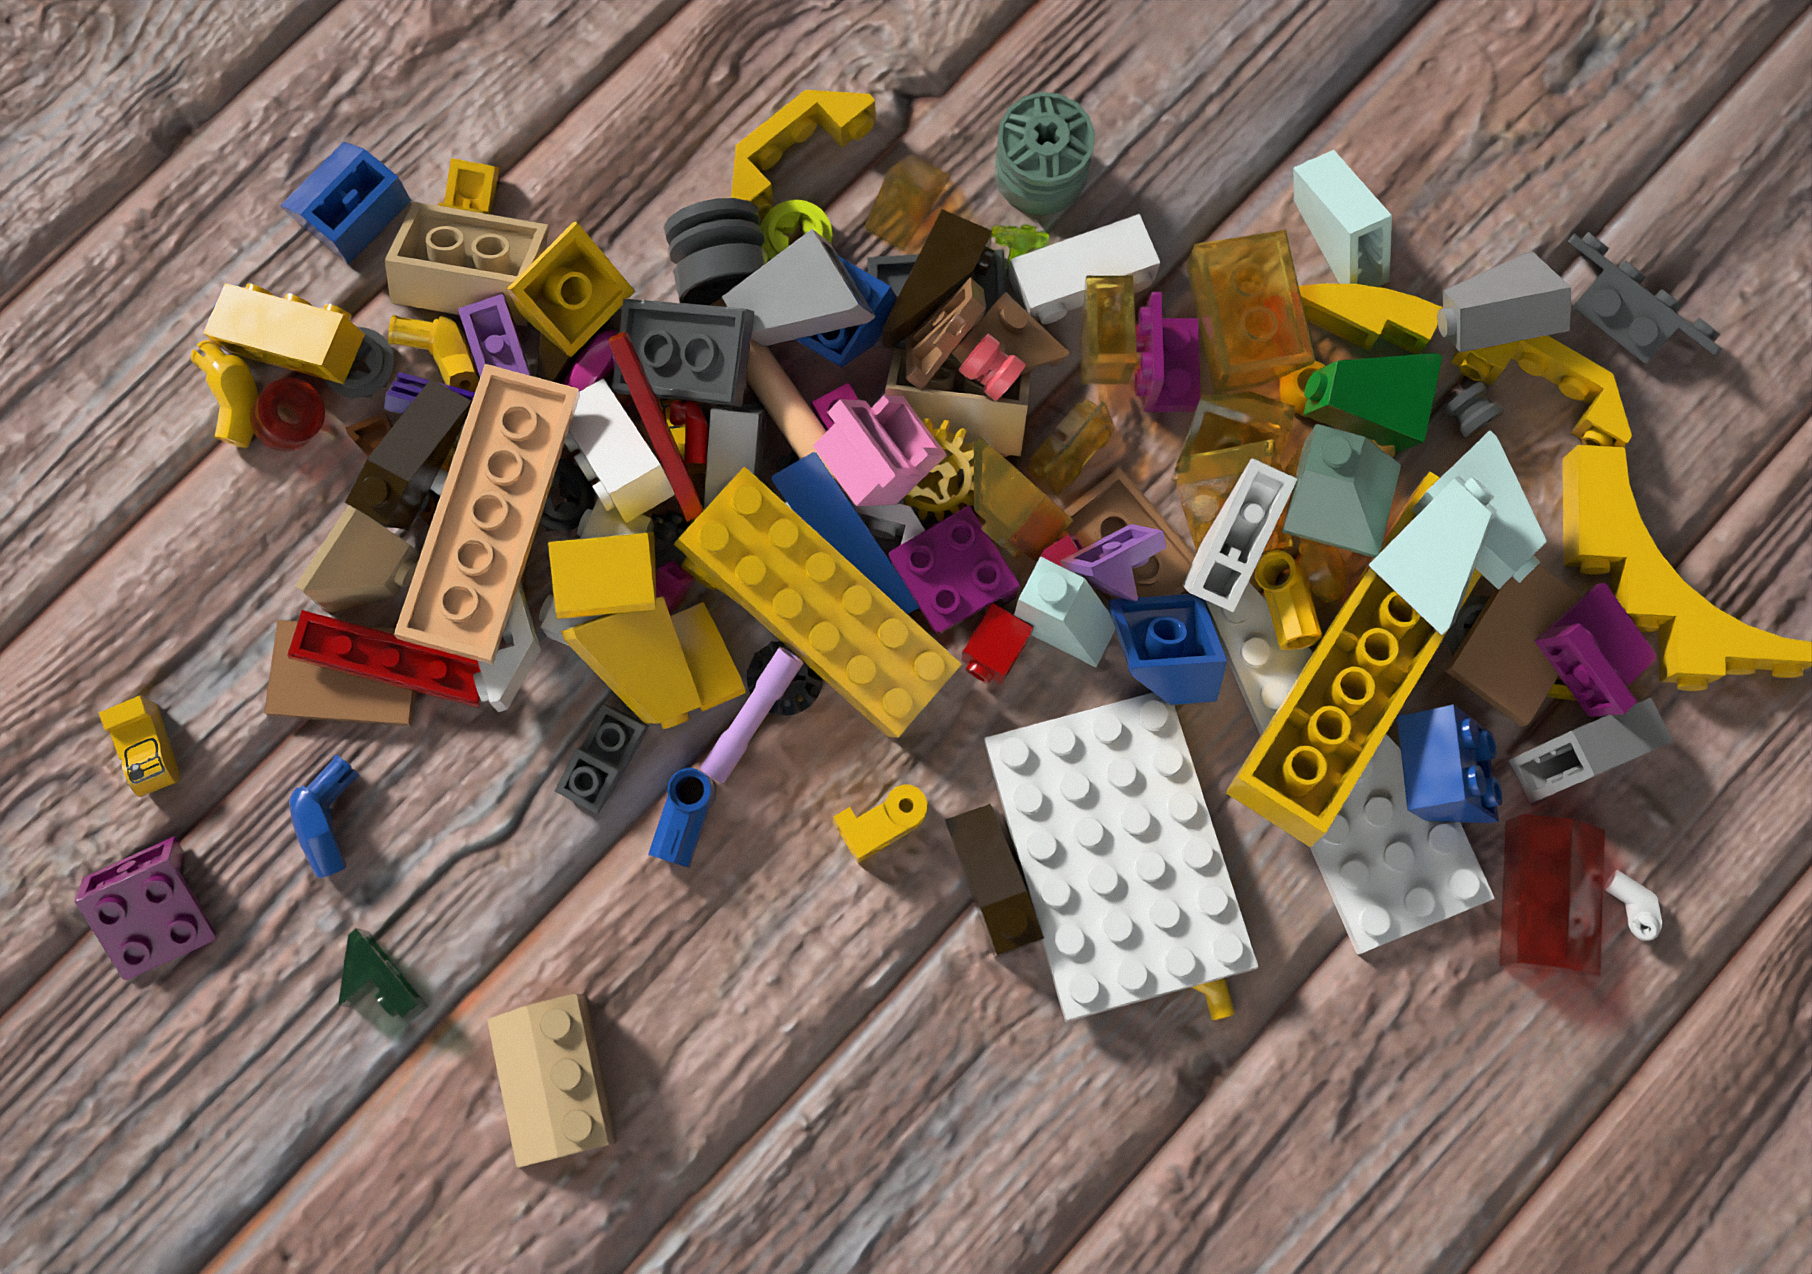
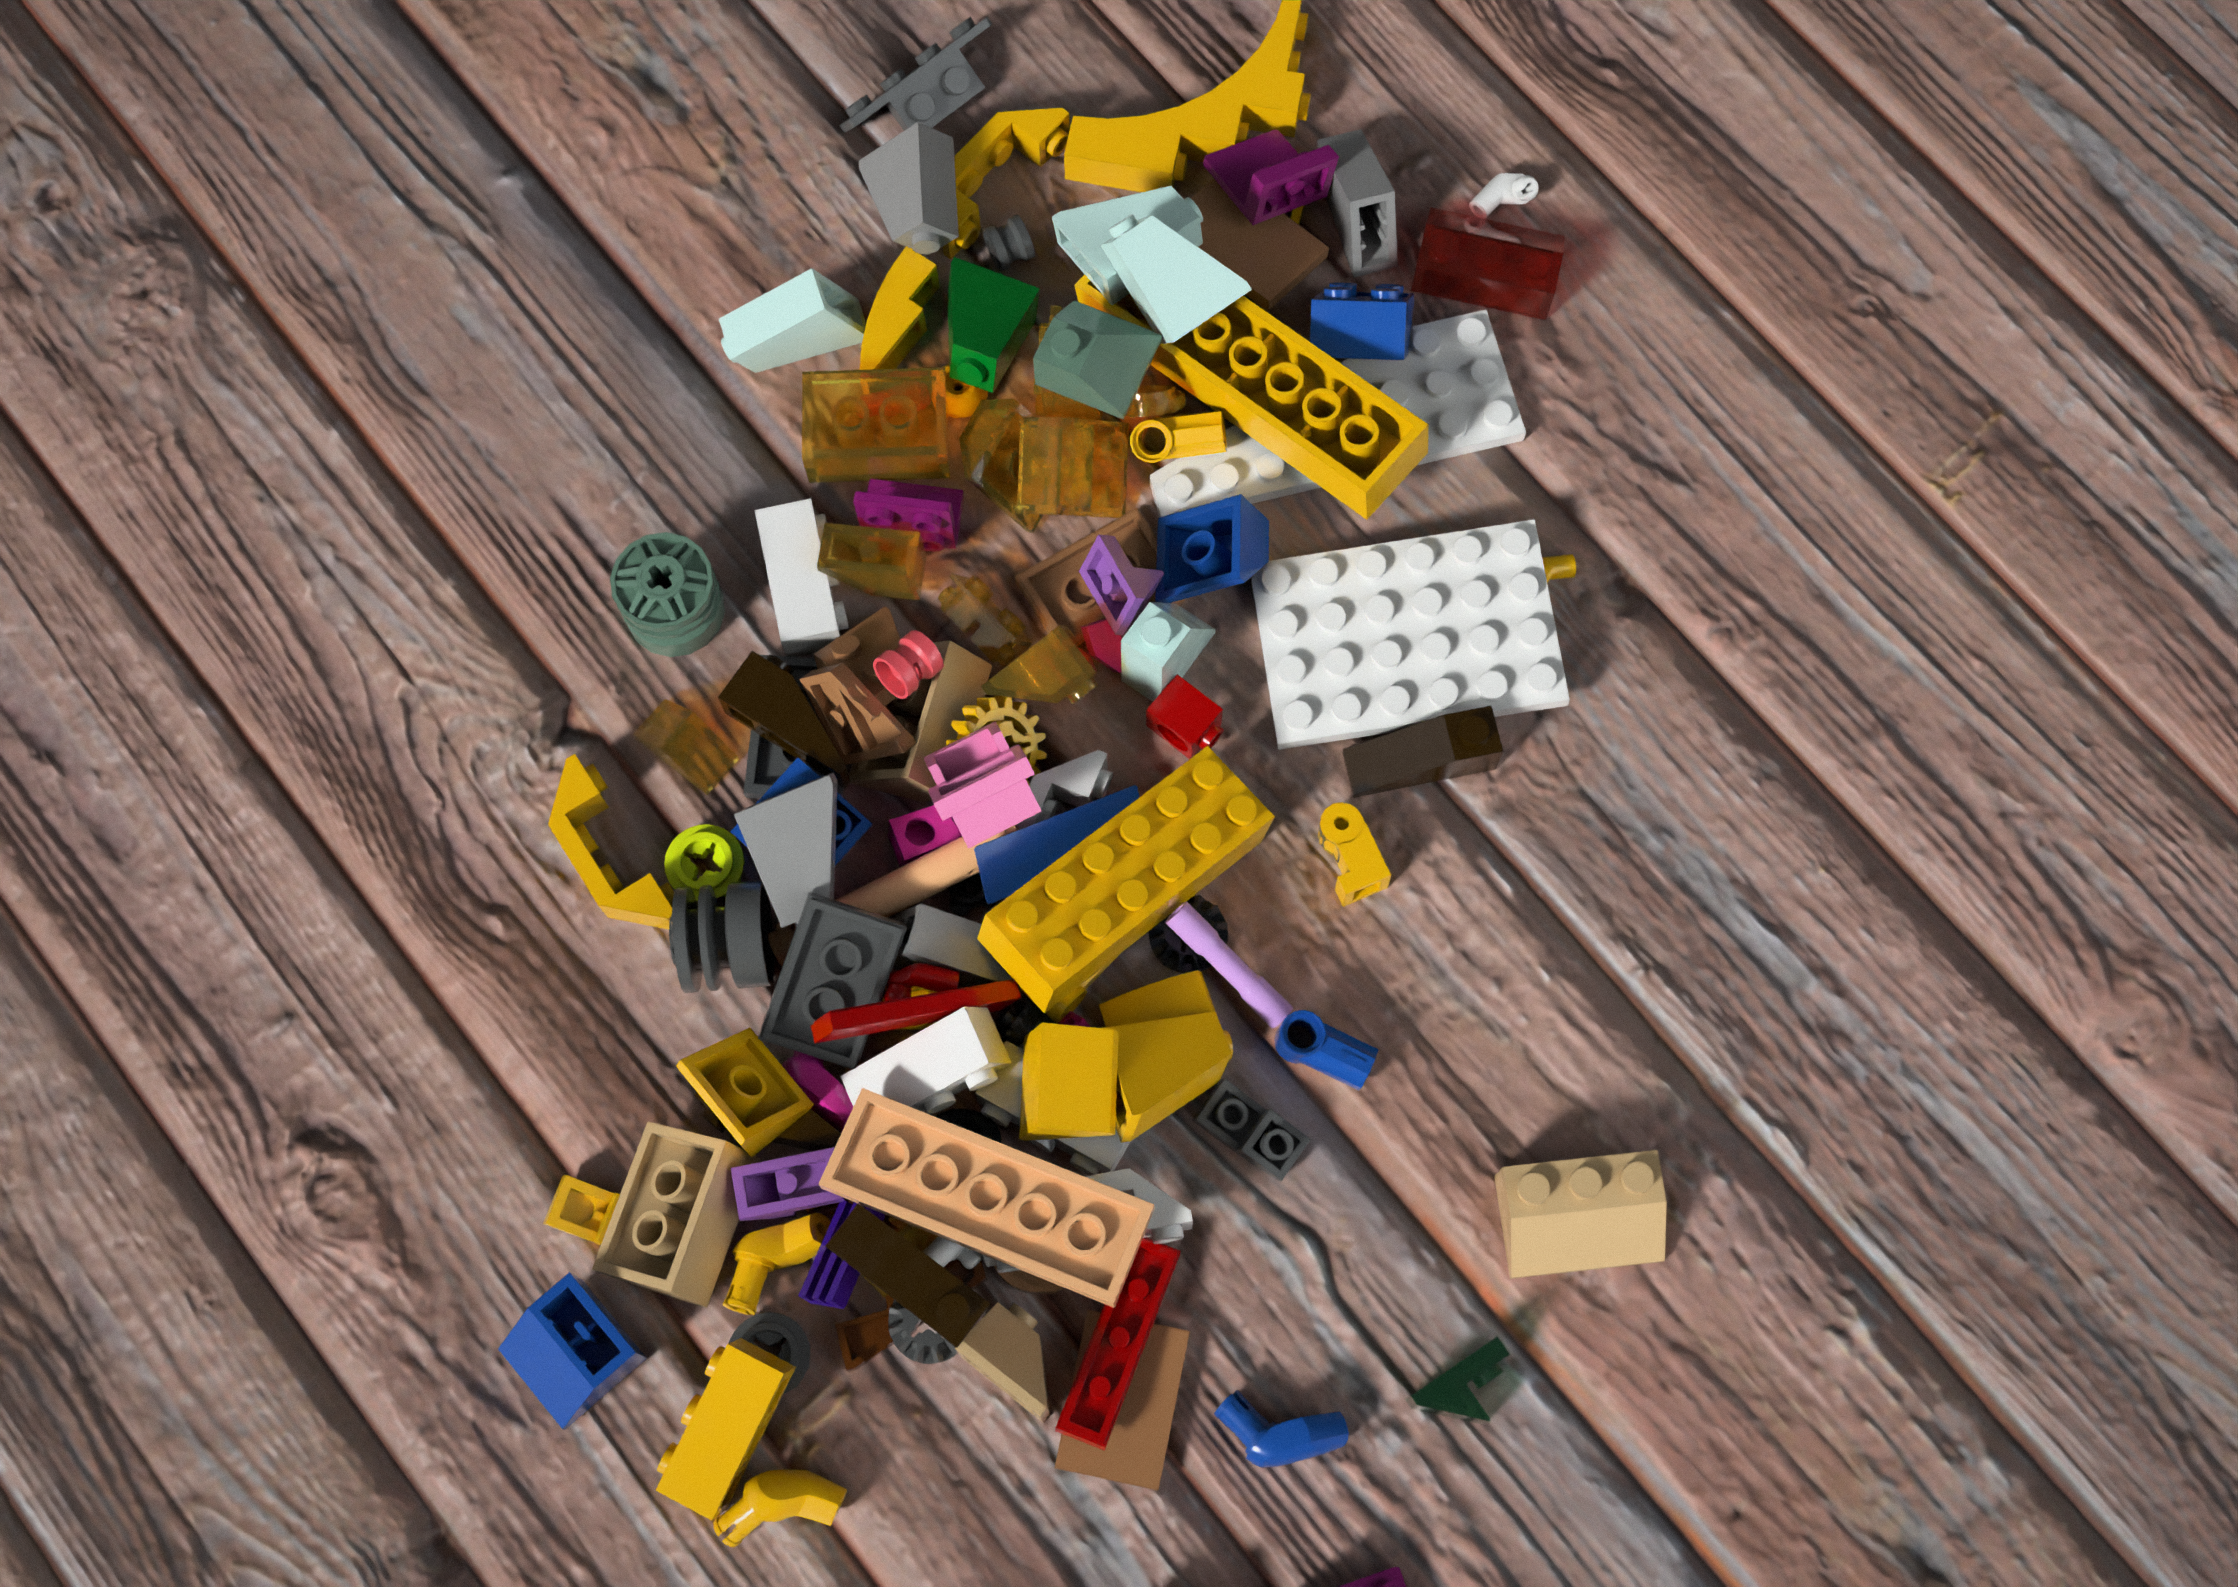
camera: 80 degrees left, 5 degrees down
(302, 400) = (827, 1454): clear red wheel -> none
(954, 570) = (1107, 742): magenta bracket -> none
(1019, 239) = (755, 635): clear neon green plant -> none
(1239, 535) = (1120, 464): white slope -> none

